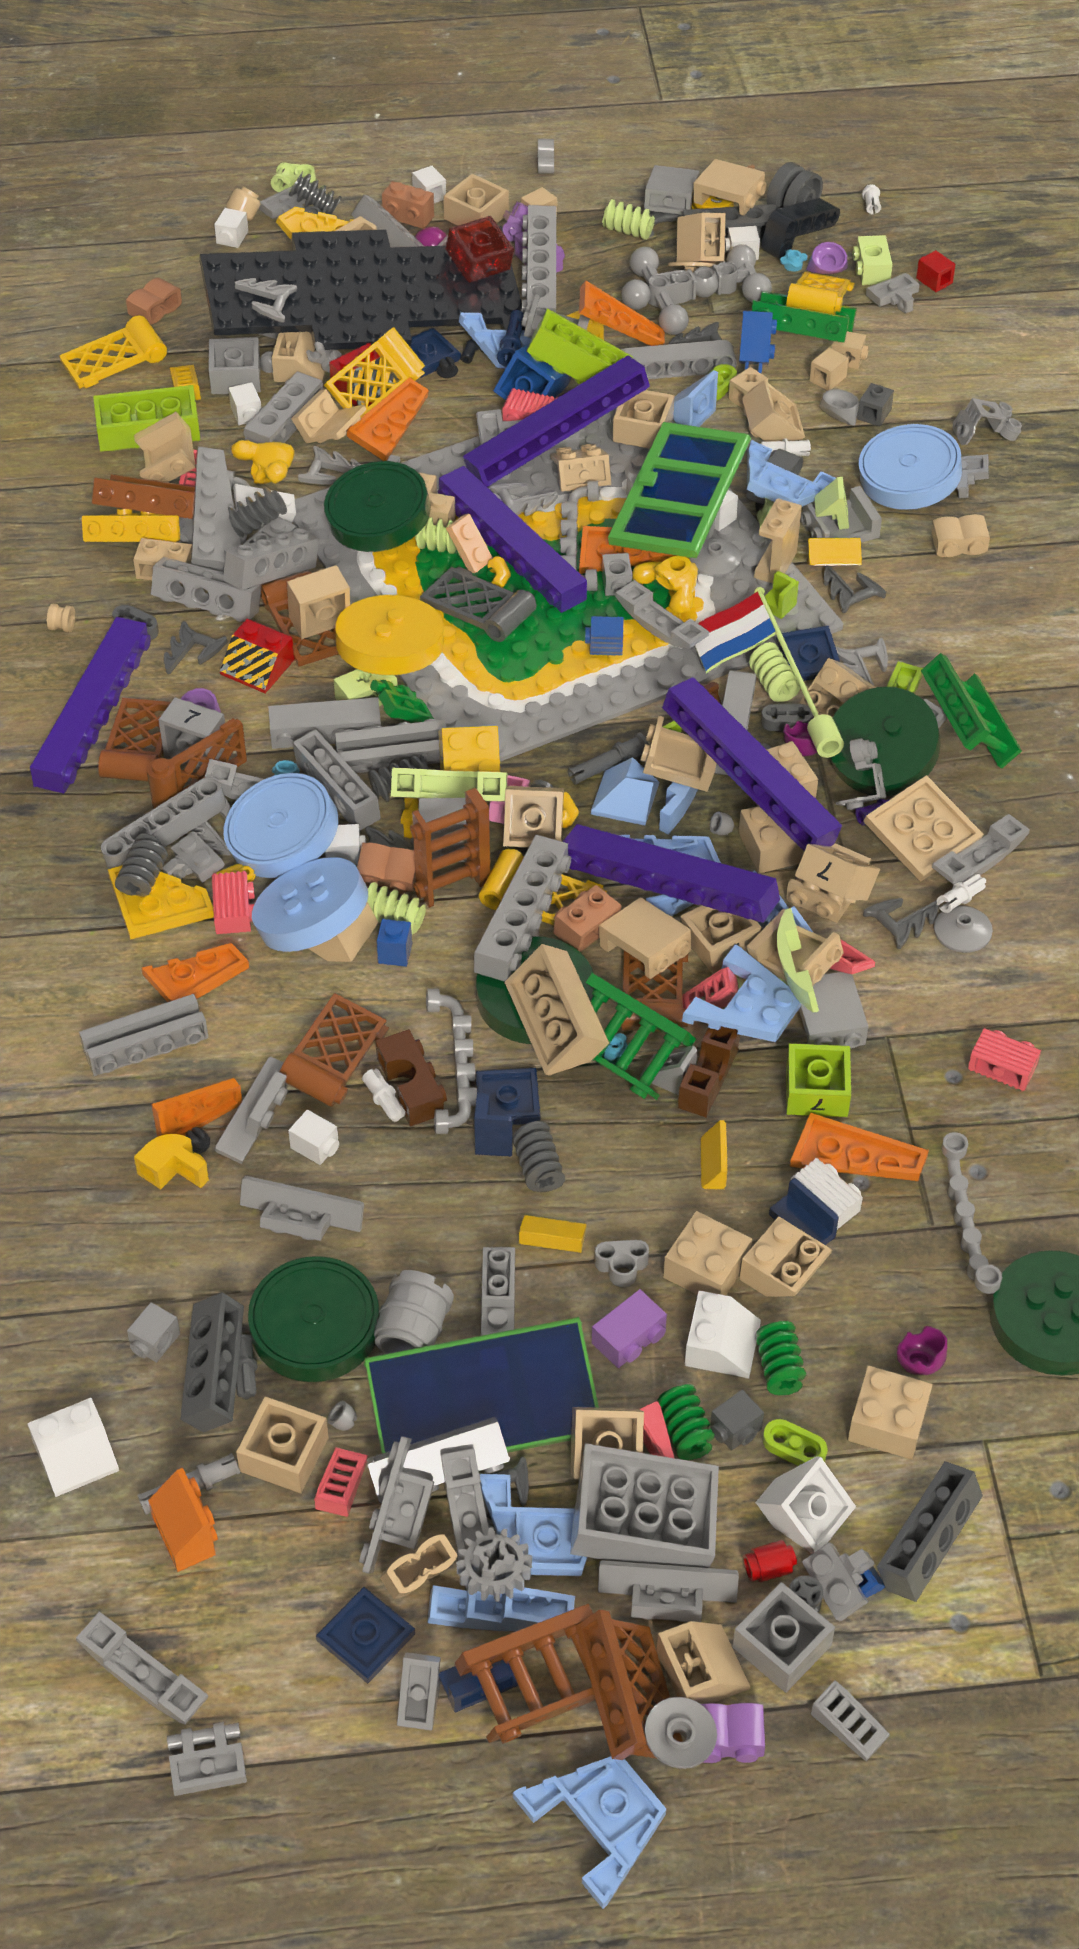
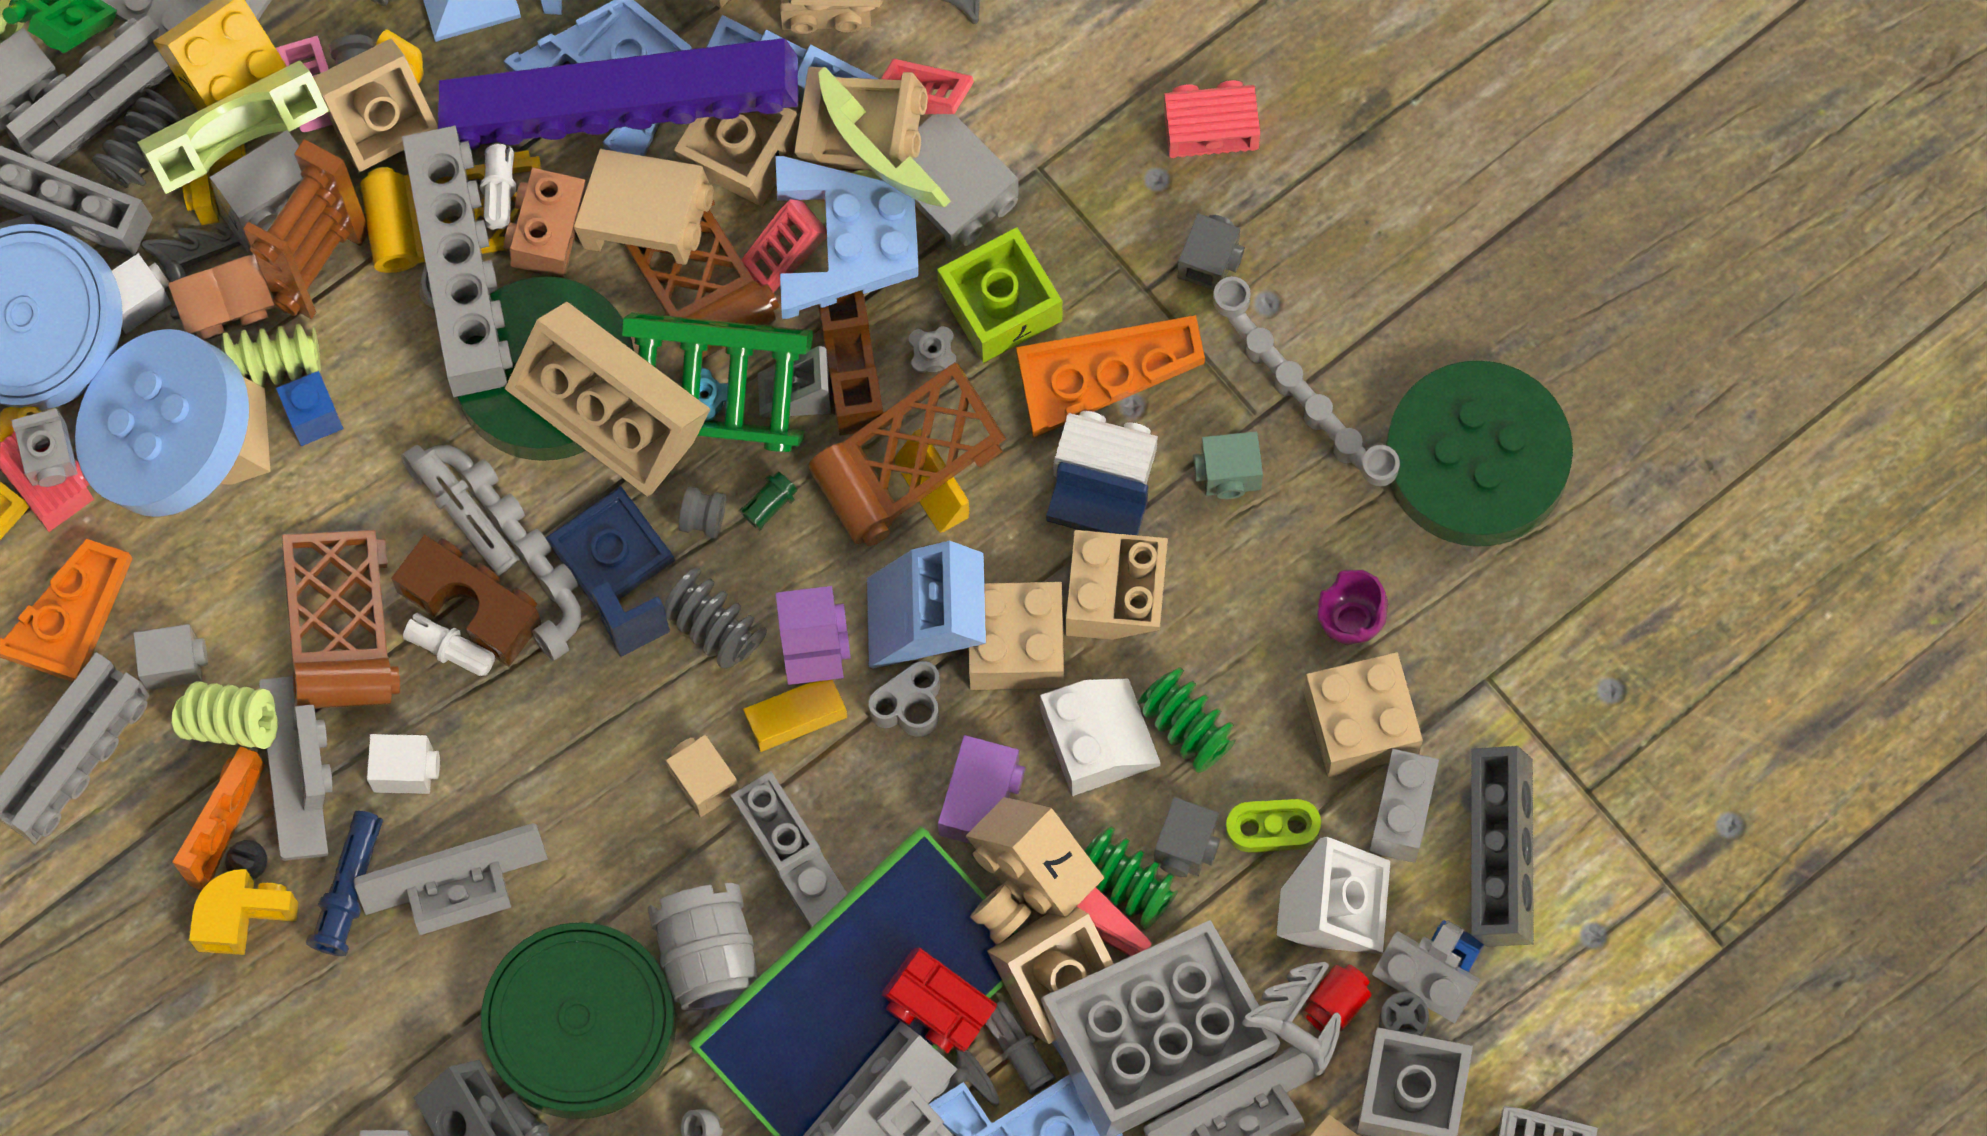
camera: 30 degrees left, 20 degrees up
(229, 1189) = (341, 904): none -> dark blue pin
(231, 1020) = (169, 656): none -> light grey brick
(237, 1059) = (226, 715): none -> yellowish green piece
(240, 882) = (38, 432): none -> light grey brick
(436, 1002) = (431, 468): none -> light grey pin
(475, 1232) = (701, 774): none -> tan brick
(524, 1417) = (937, 1000): none -> red brick
(557, 1477) = (1019, 1049): none -> dark grey axle
(571, 1102) = (702, 512): none -> dark grey wheel
(572, 887) = (498, 186): none -> white axle
(589, 1184) = (812, 635): none -> medium lavender piece
(593, 1389) = (1000, 914): none -> tan wheel
(614, 1117) = (769, 500): none -> dark green pin
(634, 1370) = (1034, 856): none -> tan brick
(667, 1206) = (926, 604): none -> light blue slope
(668, 1138) = (858, 491): none -> dark orange piece
(734, 1537) = (1289, 999): none -> light grey piece
(757, 1098) = (927, 361): none -> light grey plate
(883, 1476) = (1404, 805): none -> light grey brick
(897, 1237) = (1229, 464): none -> sand green brick
(960, 1118) = (1210, 251): none -> dark grey brick

